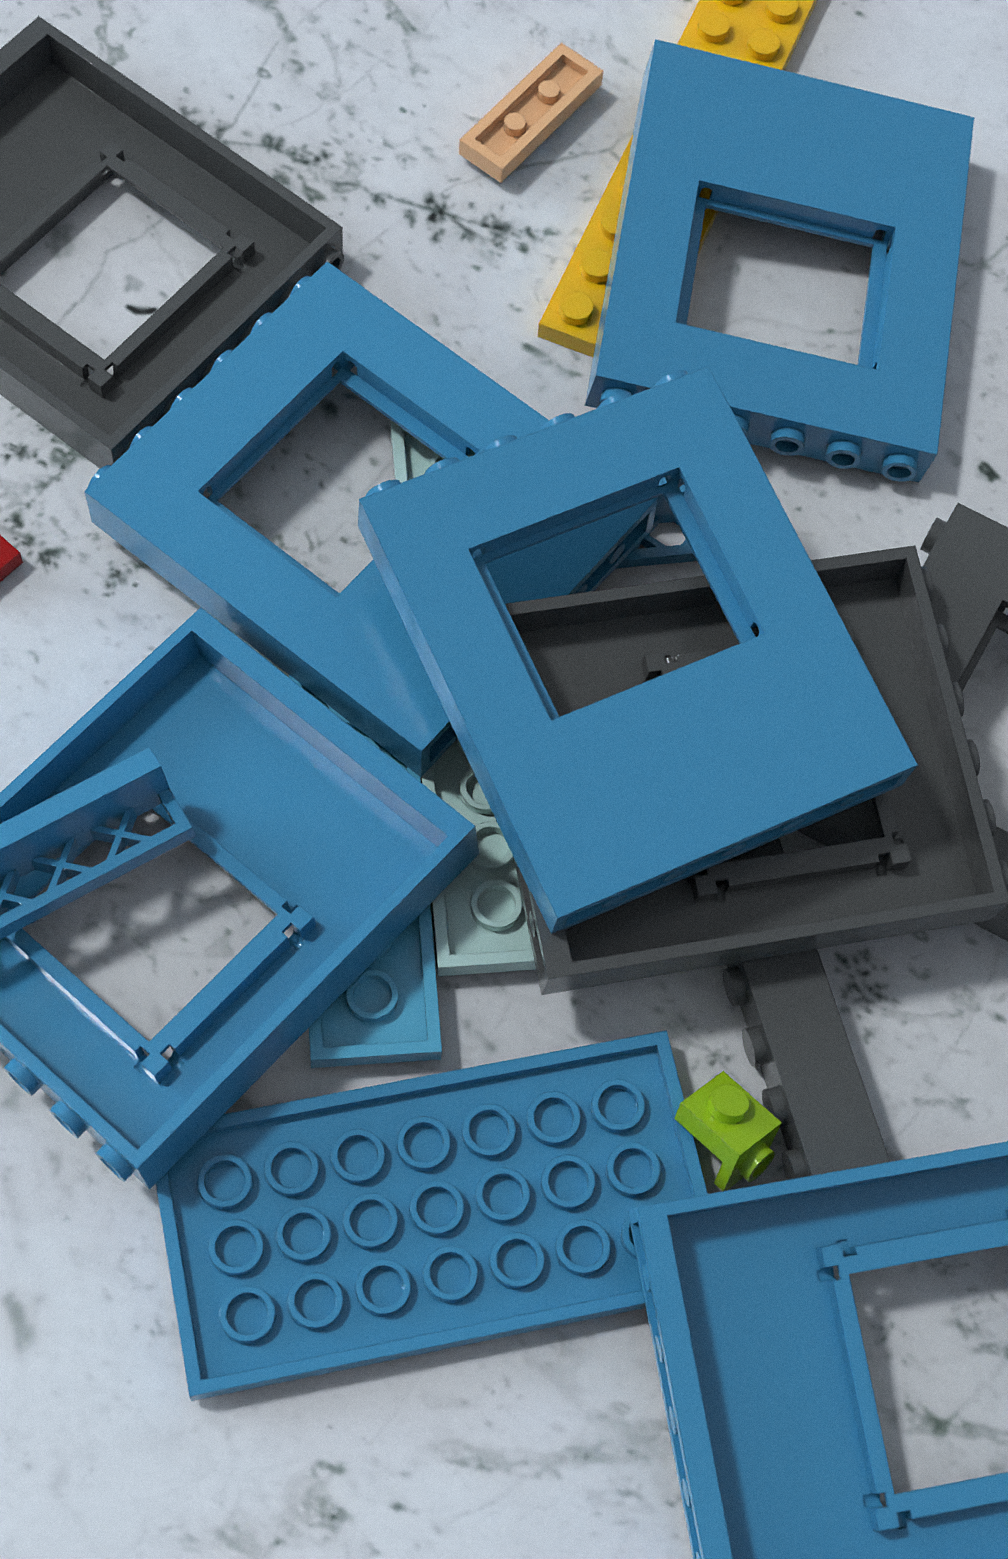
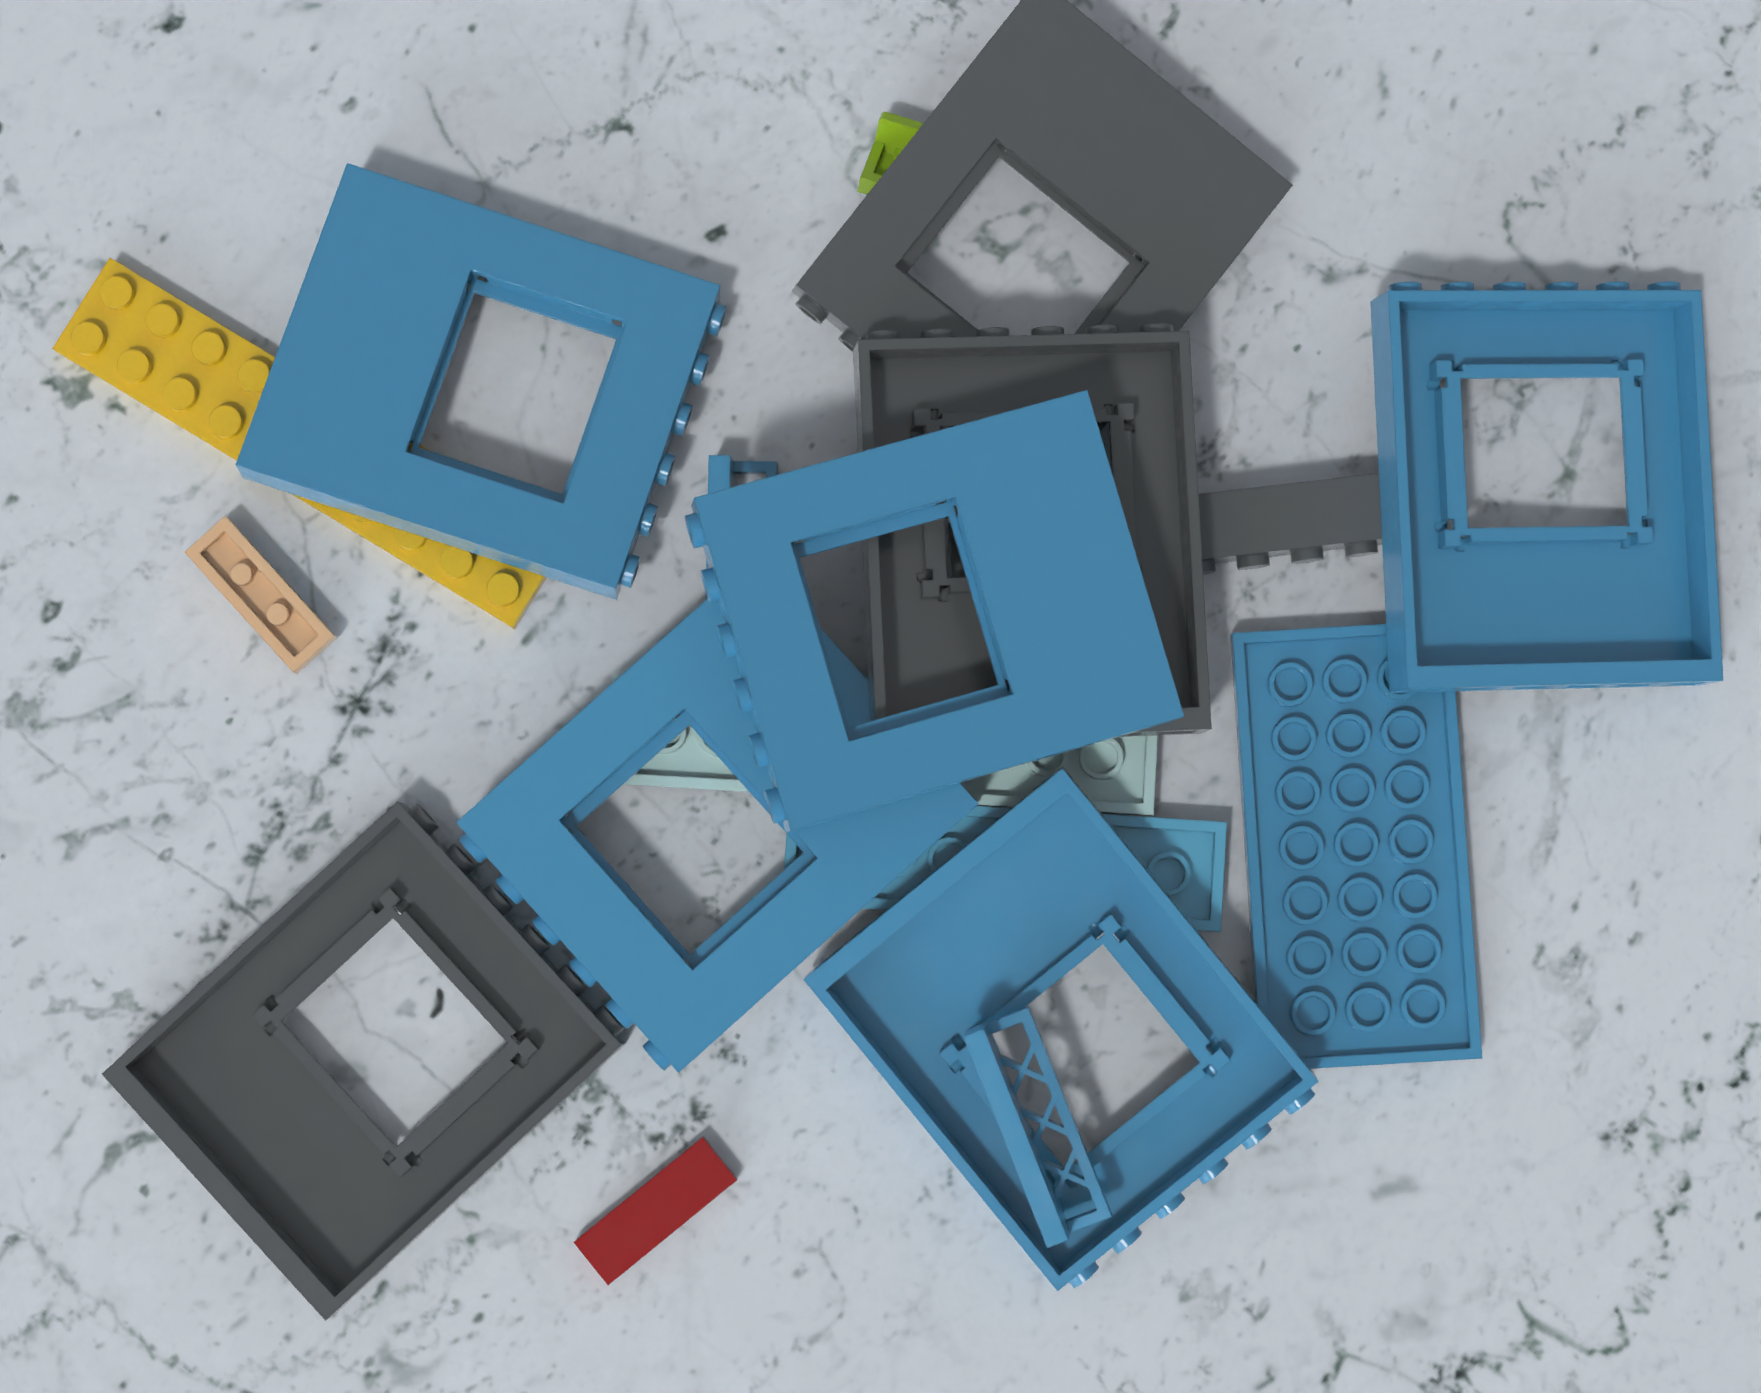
camera: 75 degrees left, 20 degrees up
(730, 1127) = (1324, 596): lime bracket -> none

